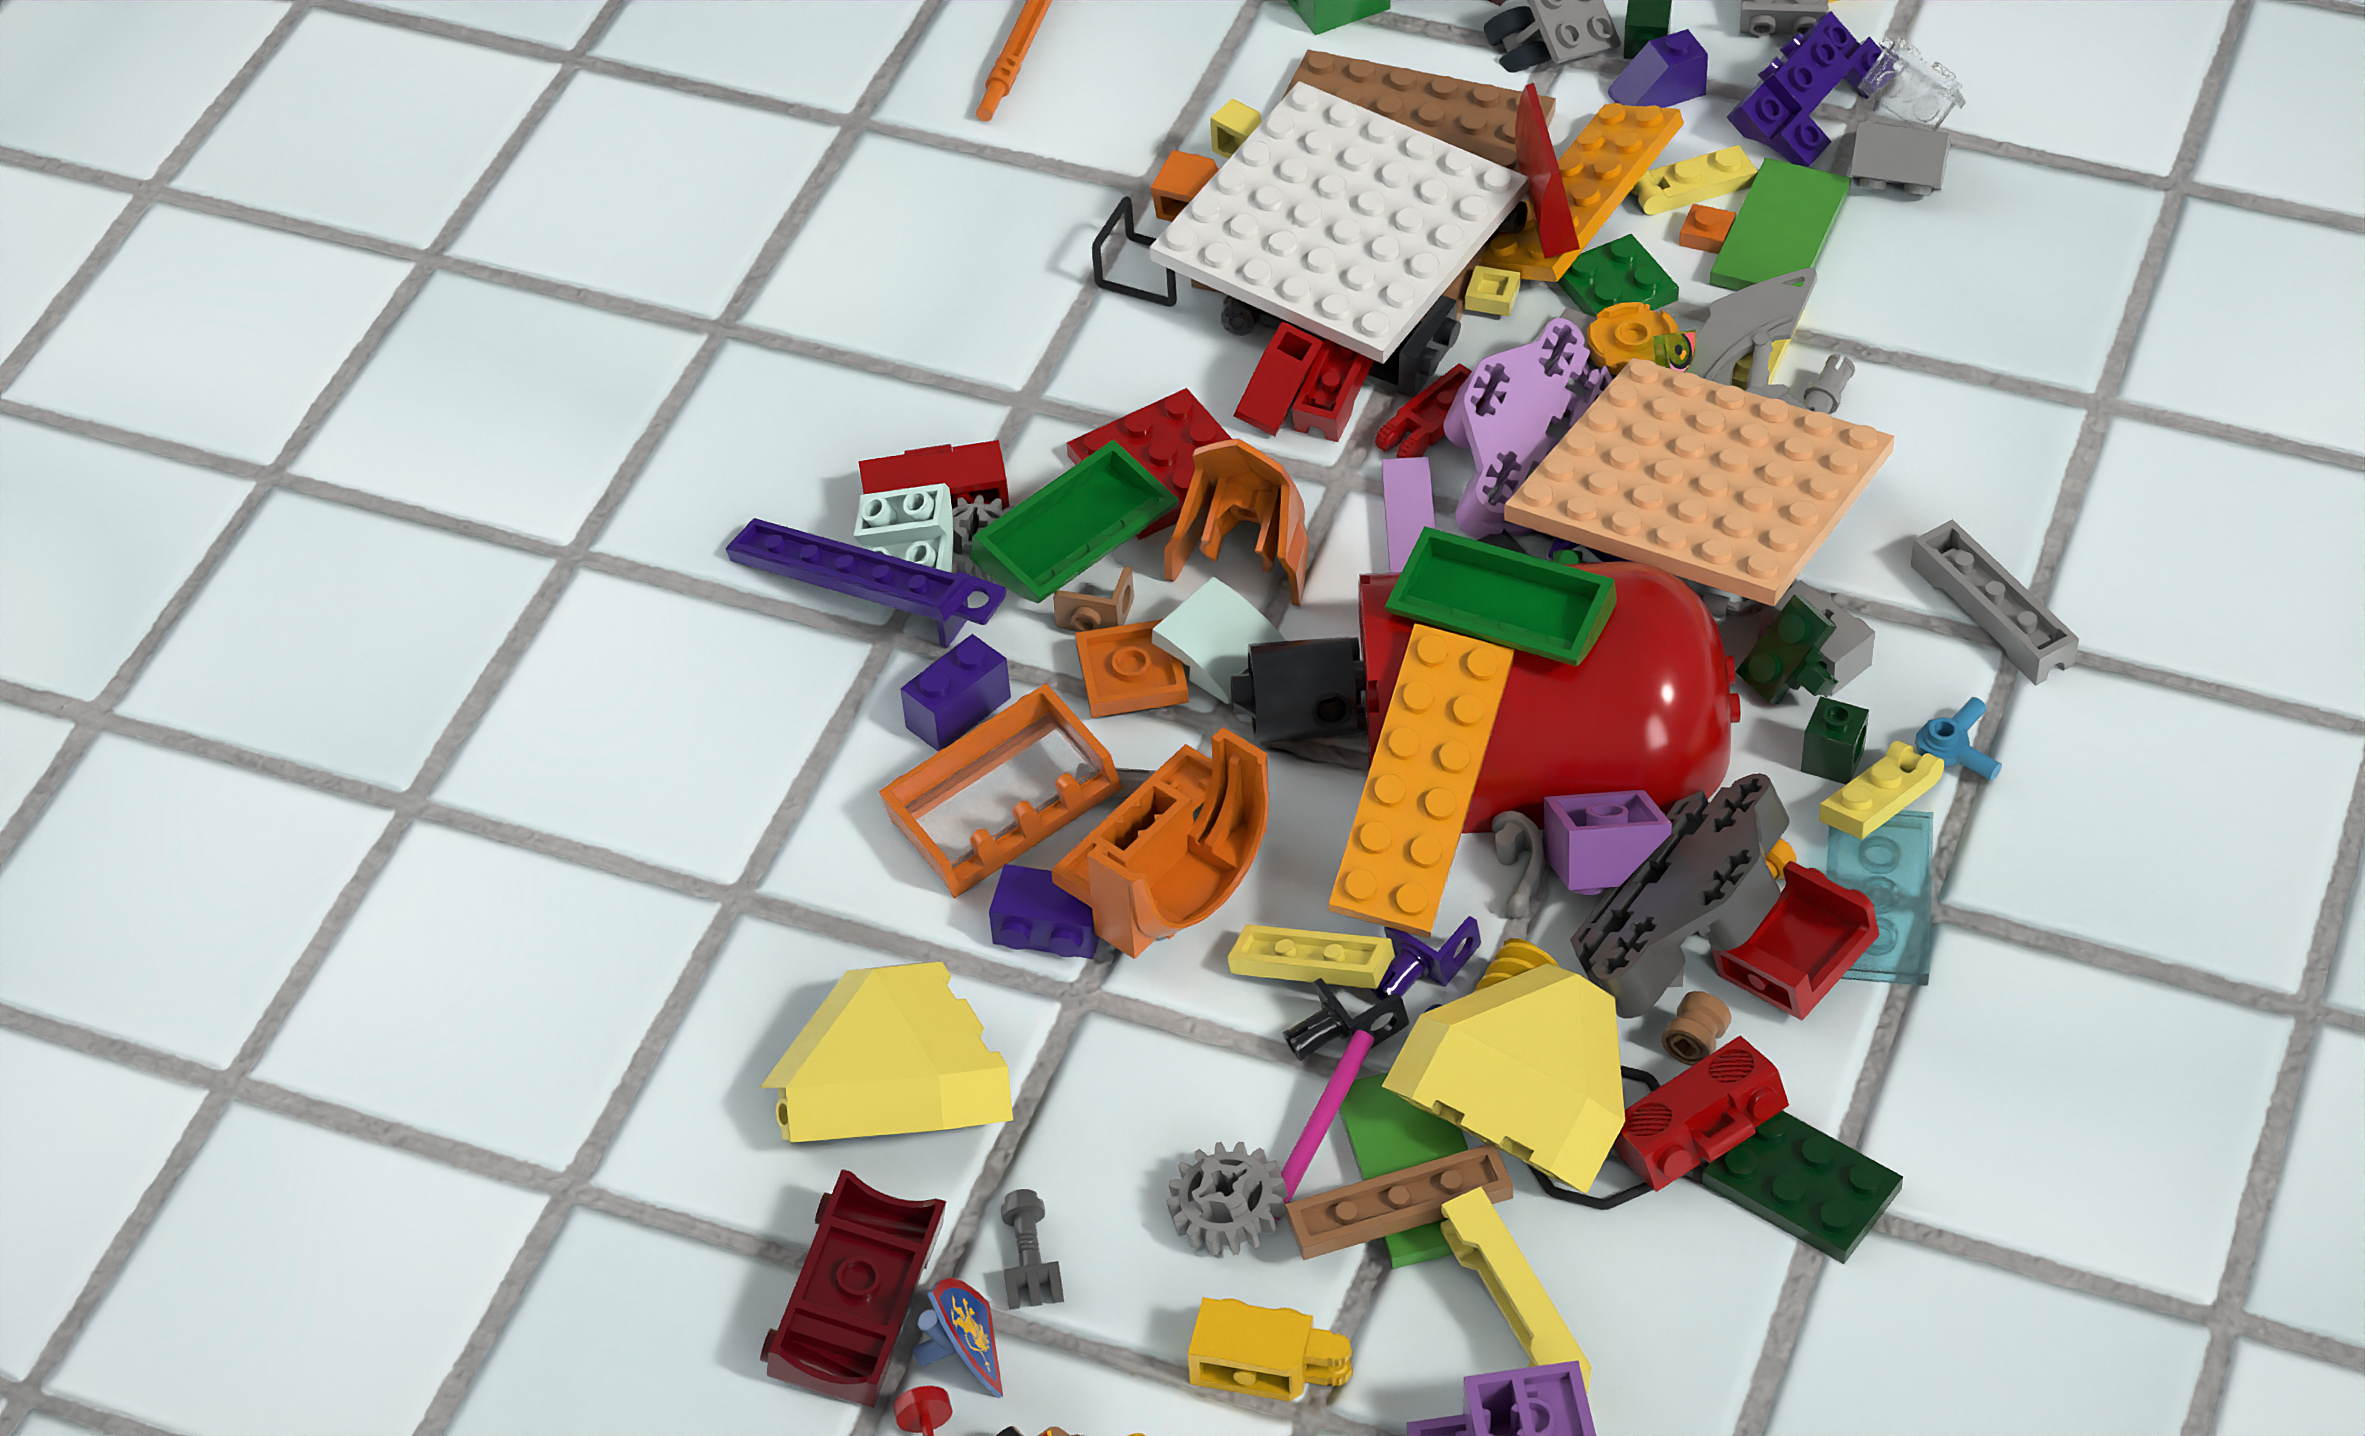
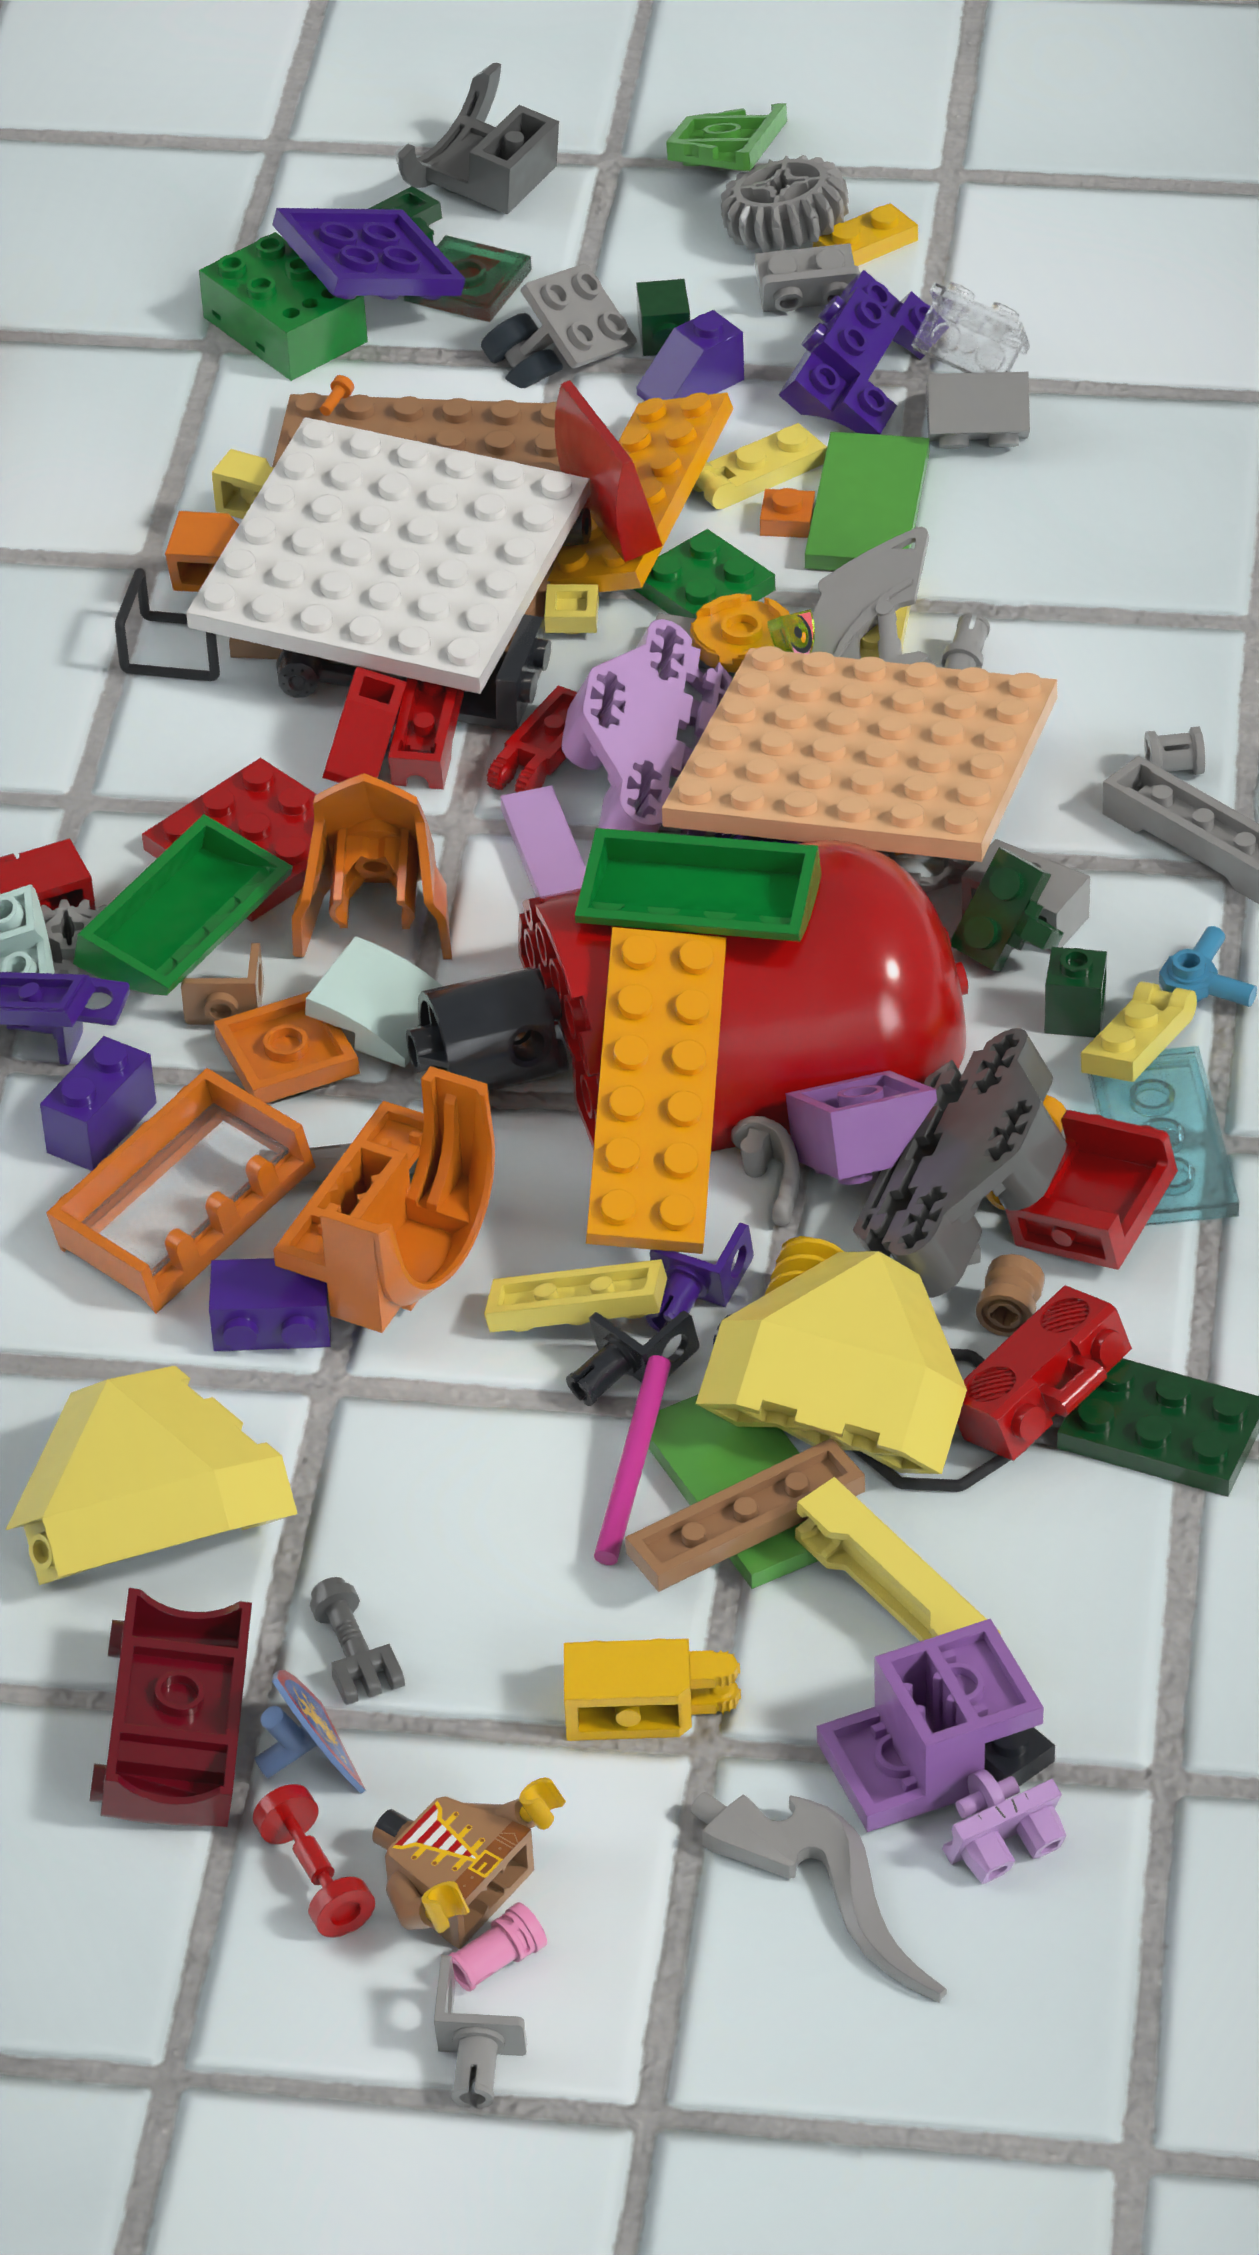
camera: 15 degrees left, 5 degrees down
(1227, 1198) = (556, 1548): light grey gear -> none
(1349, 52) = (341, 388): none -> orange piece
(1989, 519) = (1176, 751): none -> light grey bush

